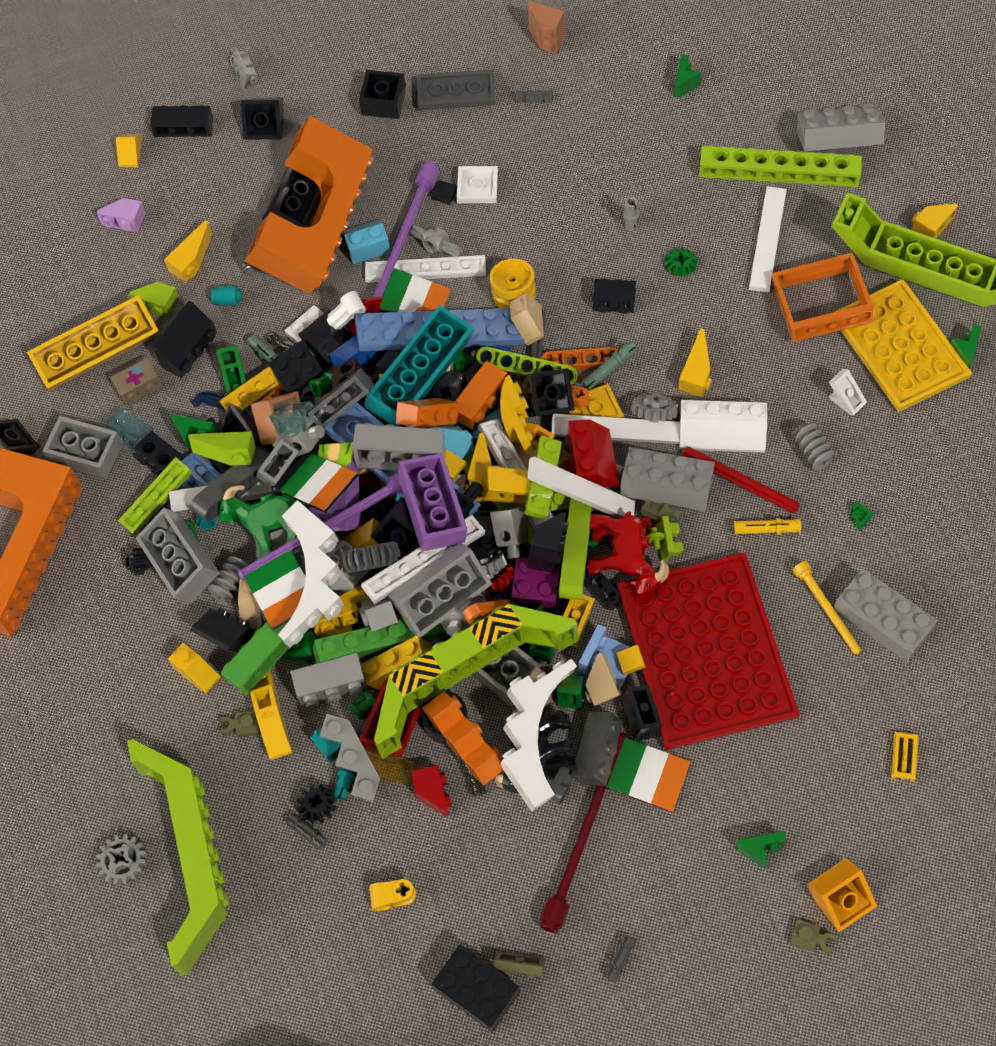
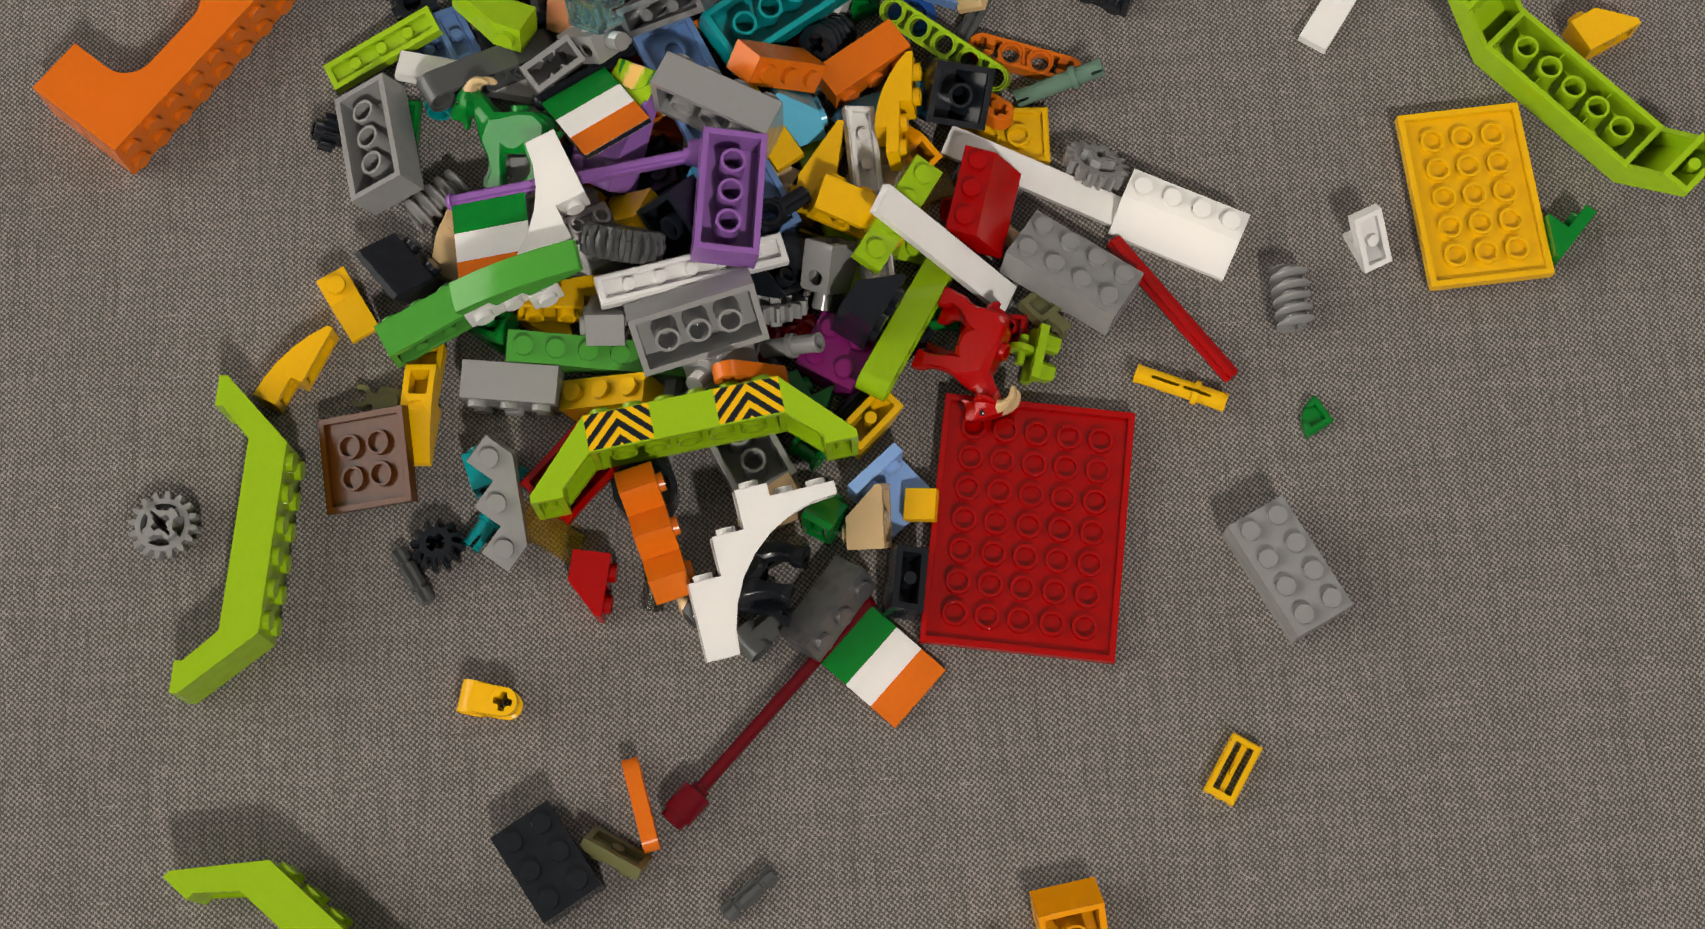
camera: 15 degrees right, 10 degrees up
(174, 723) = (296, 369): none -> yellow slope
(247, 763) = (367, 460): none -> reddish brown plate
(309, 600) = (515, 275): none -> bright green slope
(362, 705) = (546, 435): green bush -> none
(506, 586) = (792, 345): none -> light grey pin
(523, 925) = (641, 804): none -> orange beam
(599, 594) = (916, 396): black beam -> none
(696, 371) = (1172, 137): yellow slope -> none
(755, 847) = (980, 816): green slope -> none
(803, 571) = (1204, 468): yellow piece -> none
(829, 322) = (1394, 130): orange window -> none

